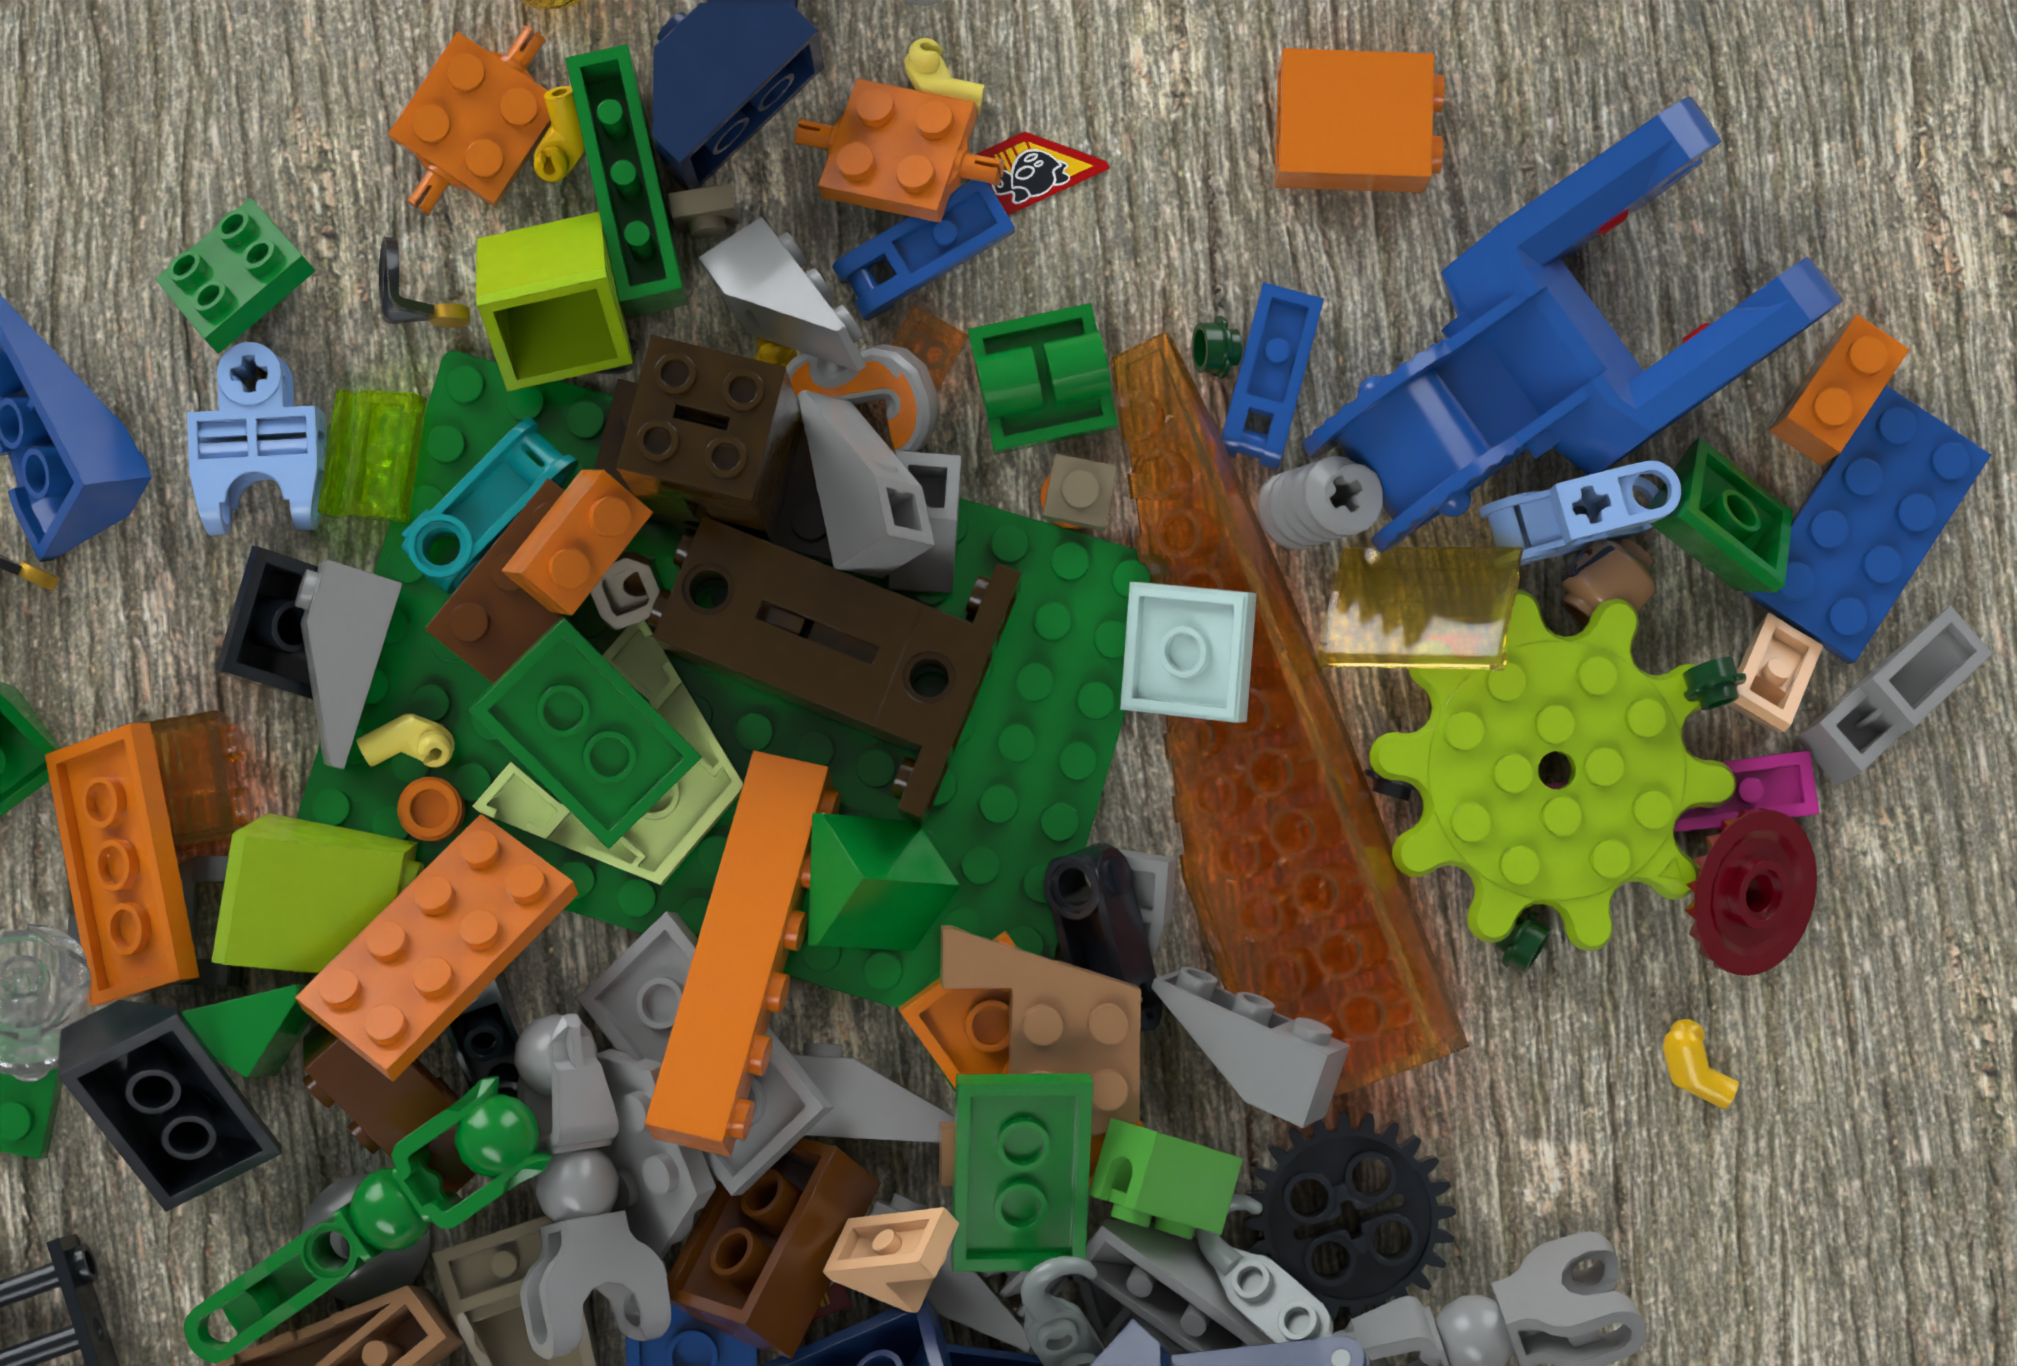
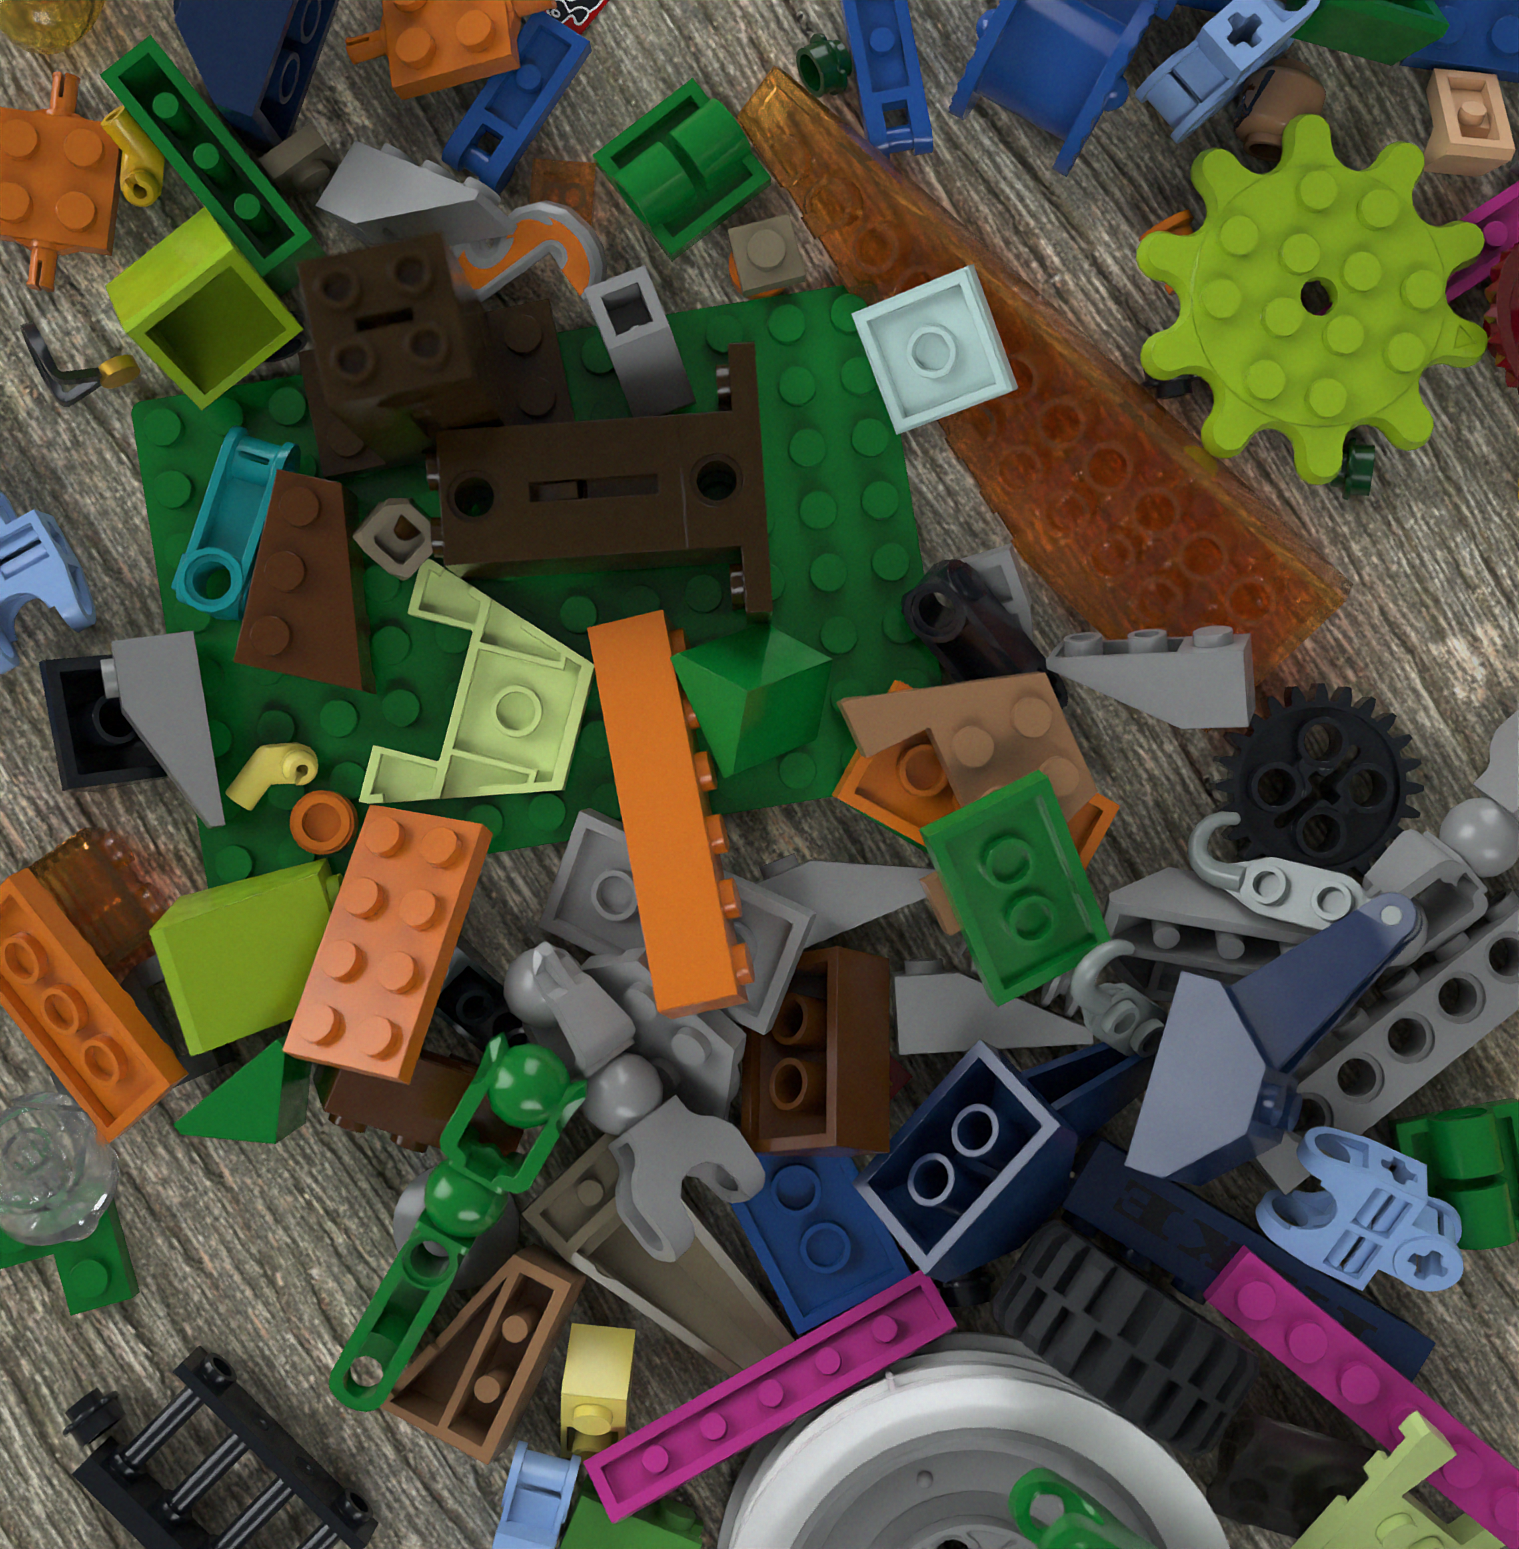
camera: 25 degrees left, 5 degrees up
(162, 1100) = (208, 1200): black slope -> none
(372, 455) = (111, 530): clear neon green plate -> none
(577, 541) = (331, 510): orange brick -> none
(585, 732) = (426, 684): green plate -> none
(866, 494) = (577, 341): light grey slope -> none
(893, 1255) = (936, 1017): light nougat slope -> none
(1164, 1178) = (1146, 833): bright green brick -> none
(1319, 502) = (990, 154): light grey piece -> none
(1421, 608) = (1128, 207): clear yellow piece -> none
(1713, 683) = (1428, 144): dark green plate -> none

